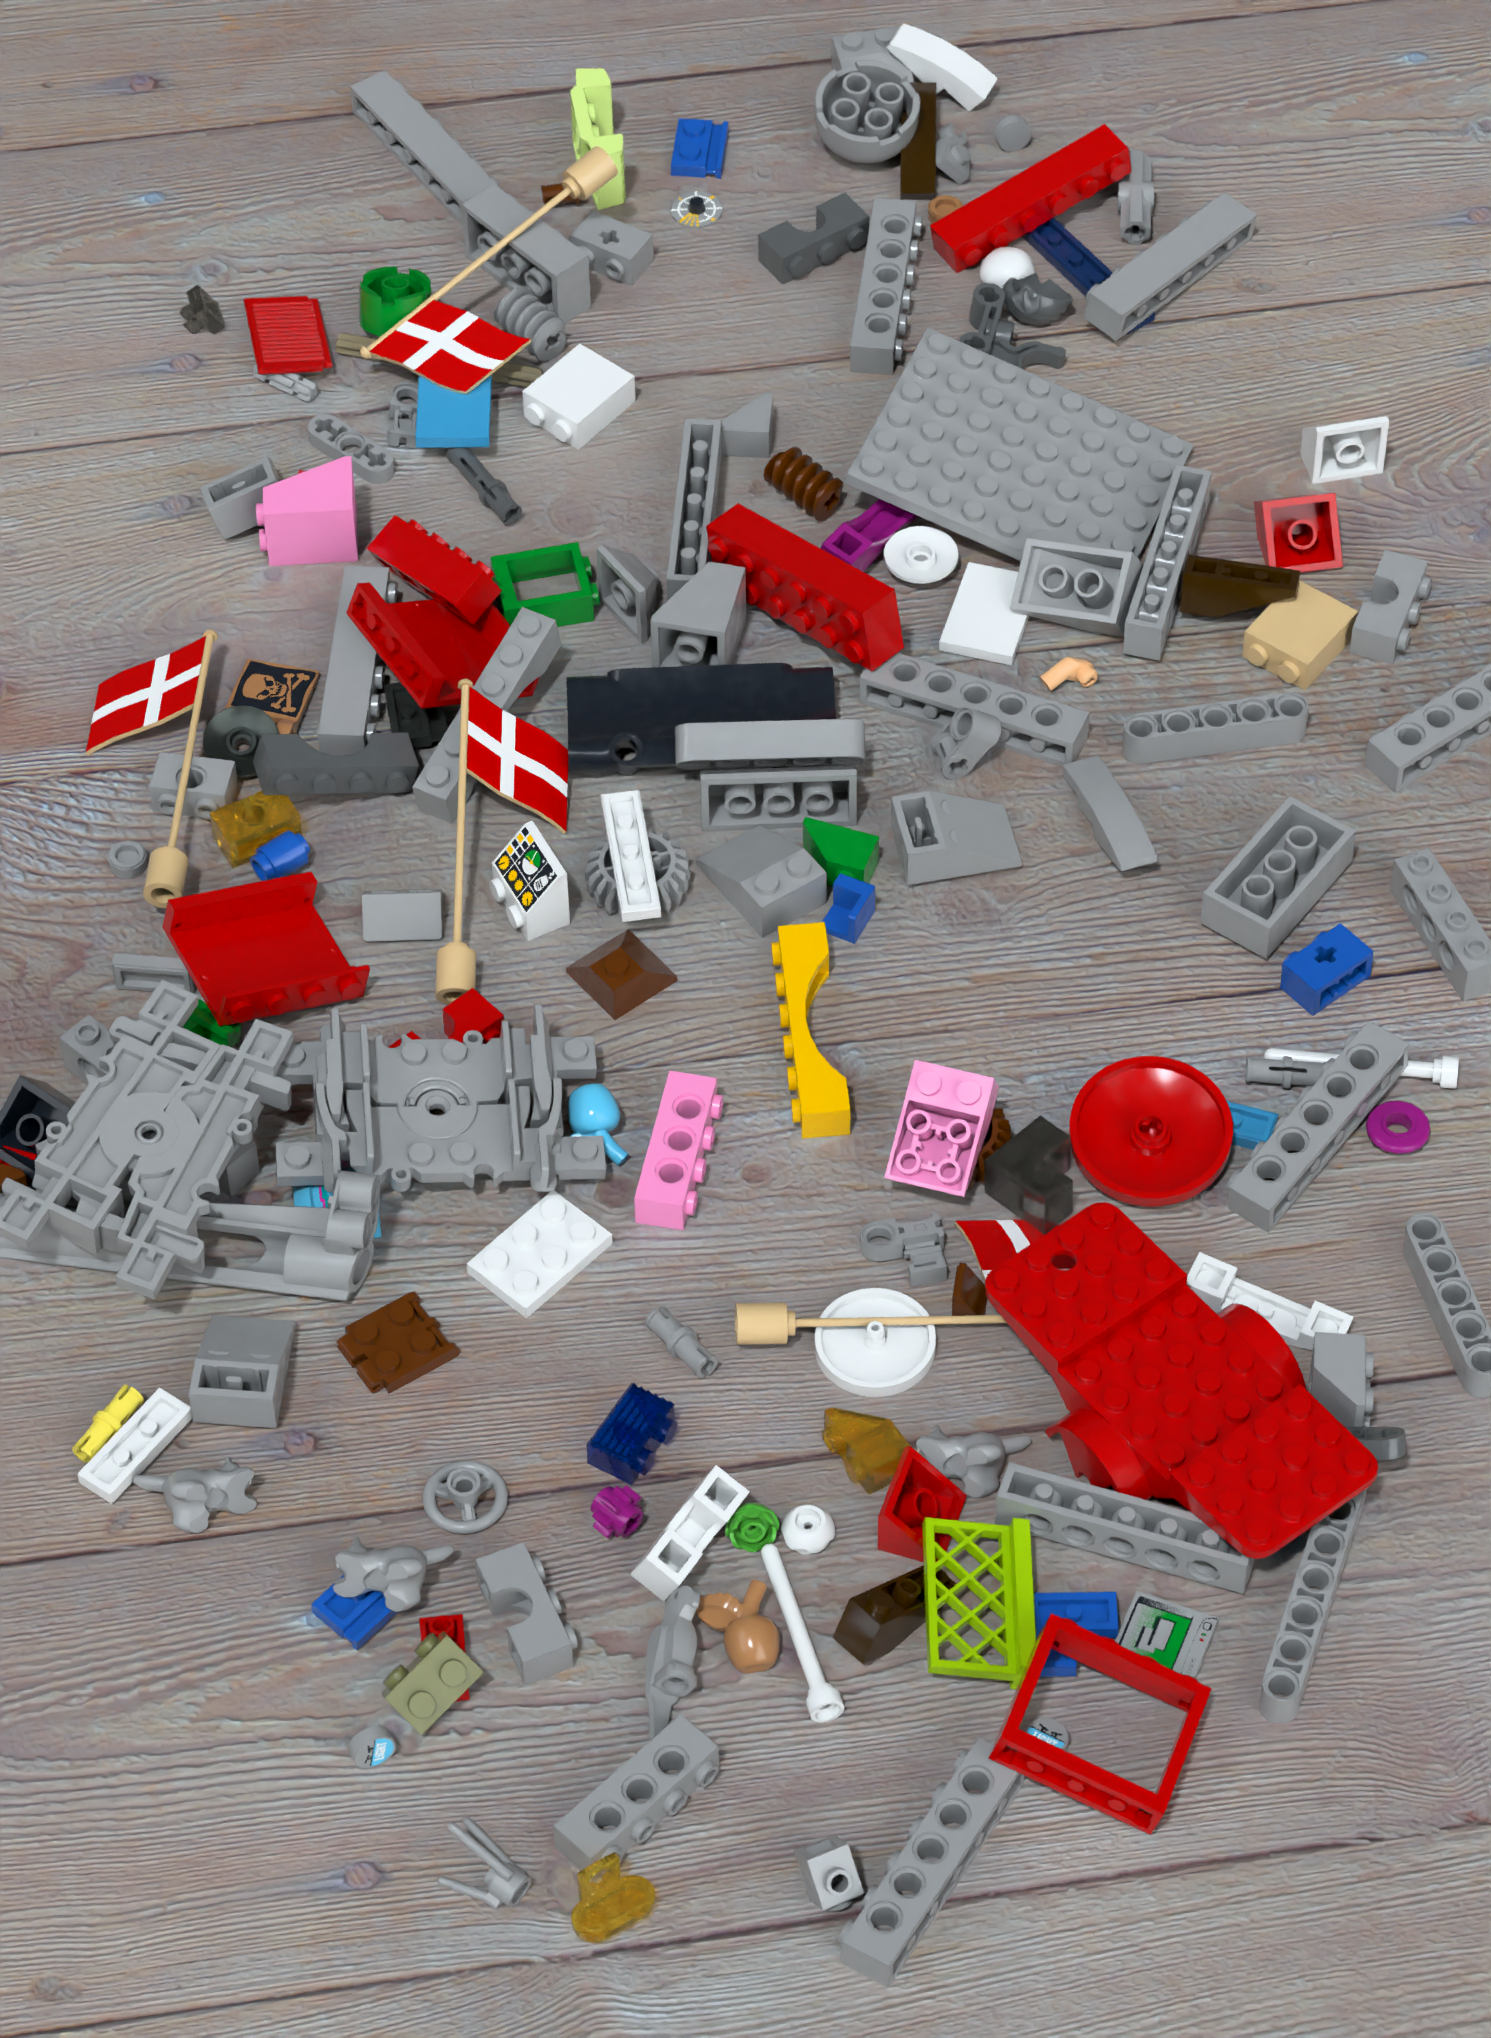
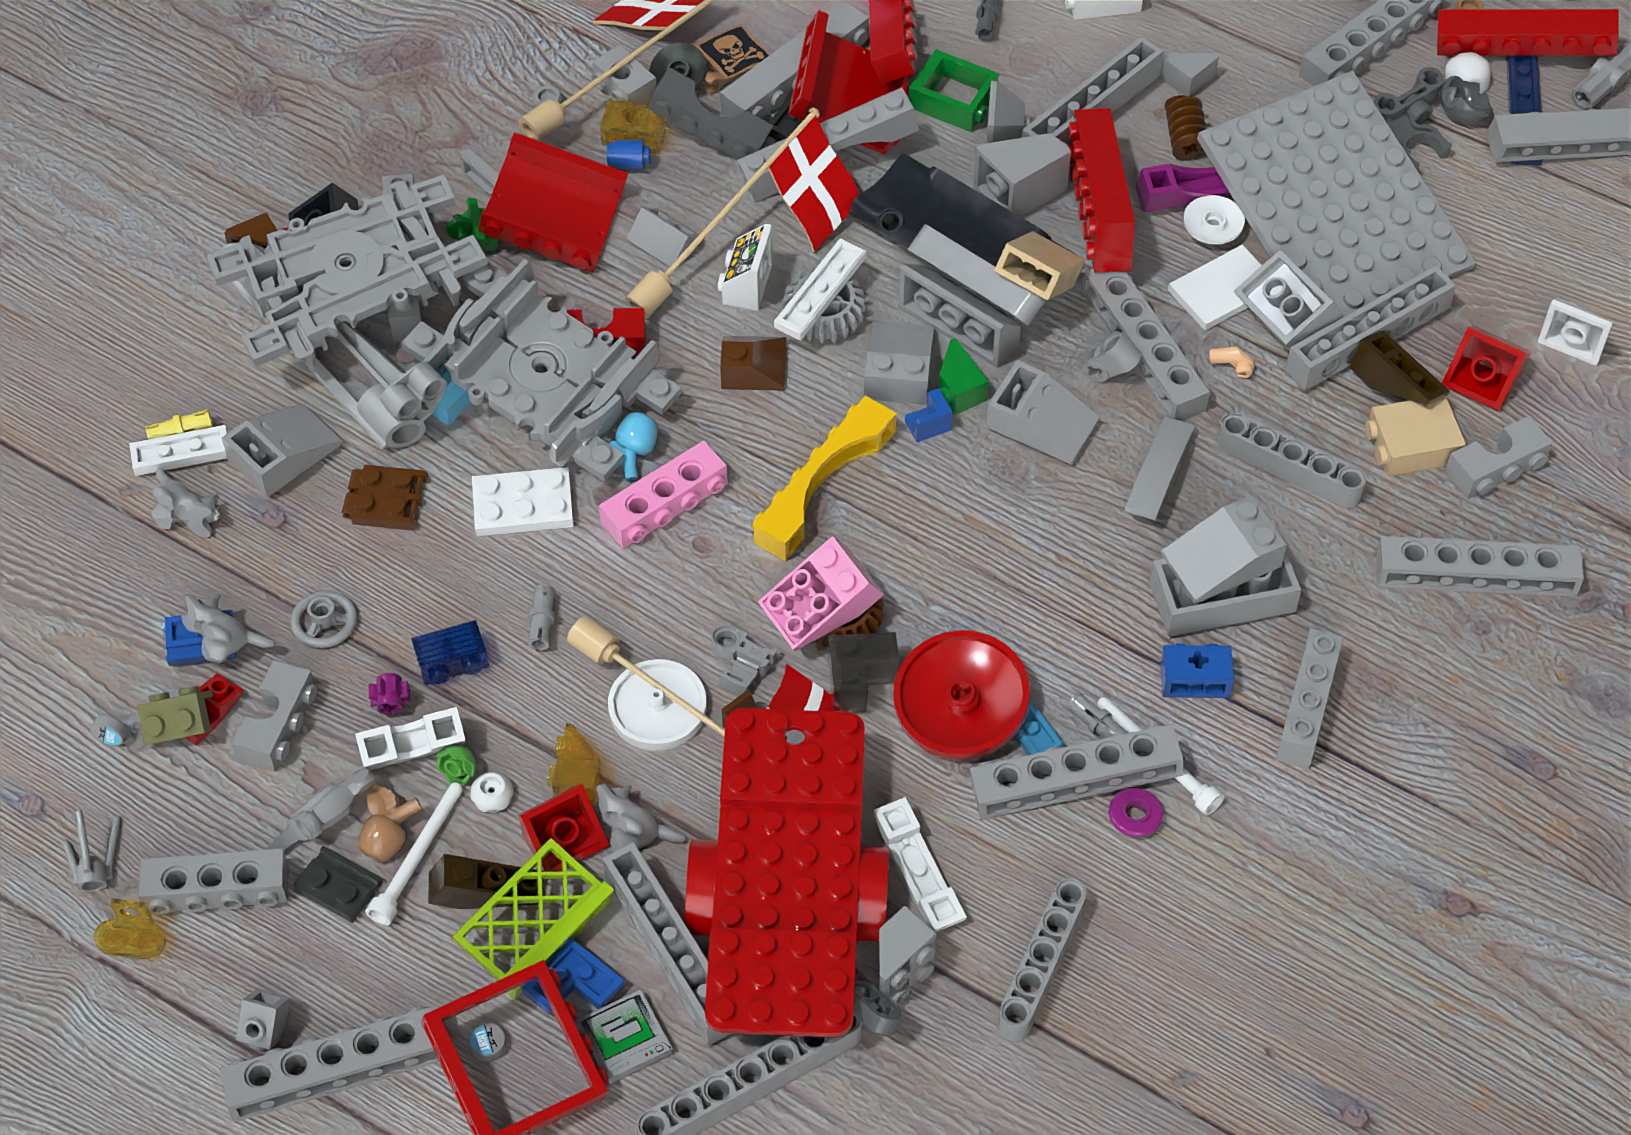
camera: 40 degrees right, 5 degrees up
(753, 1715) = (337, 884): none -> pearl dark grey plate
(830, 692) = (1039, 265): none -> tan brick
(1263, 836) = (1225, 550): none -> light grey slope

